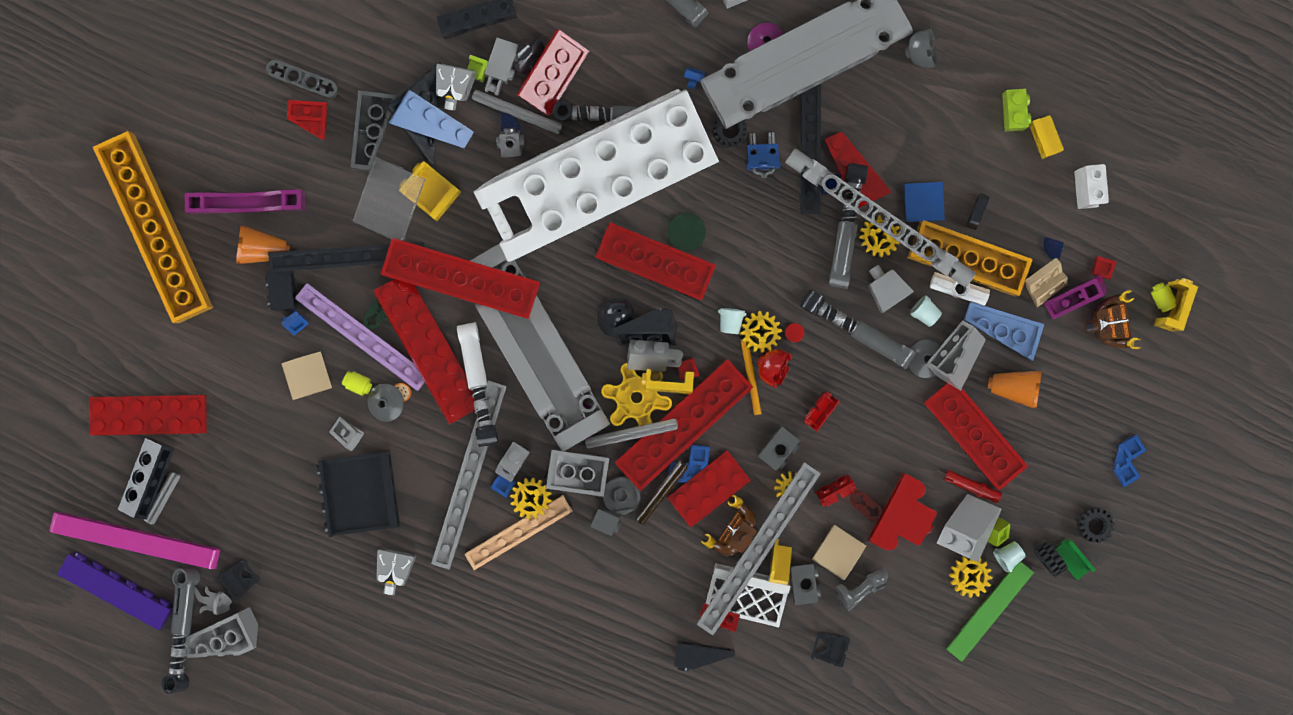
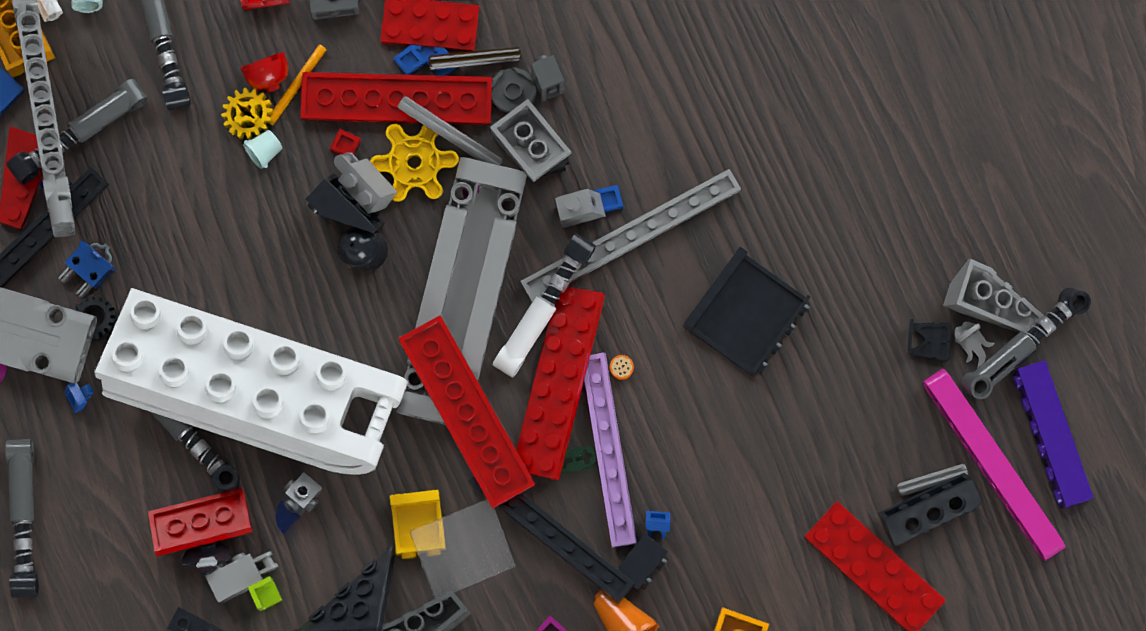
camera: 140 degrees left, 10 degrees down
(306, 375) = (693, 464): tan slope -> none
(346, 433) = (706, 375): light grey slope -> none
(357, 383) = (653, 412): neon yellow brick -> none
(393, 402) = (633, 371): dark grey dish -> none
(393, 568) = (778, 216): light grey torso -> none
(424, 118) = (355, 586): medium blue wing -> none
(453, 84) = (299, 599): light grey torso -> none
(517, 112) = (268, 520): light grey axle -> none
(517, 533) = (636, 145): light nougat tile -> none
(541, 491) = (606, 162): yellow gear -> none
(655, 261) = (278, 265): red plate -> none
(672, 387) = (358, 123): yellow panel -> none
(686, 232) = (224, 264): clear green tile -> none
(794, 332) = (219, 86): red tile -> none
(875, 248) = (67, 94): yellow gear -> none
(887, 288) = (99, 45): light grey torso -> none

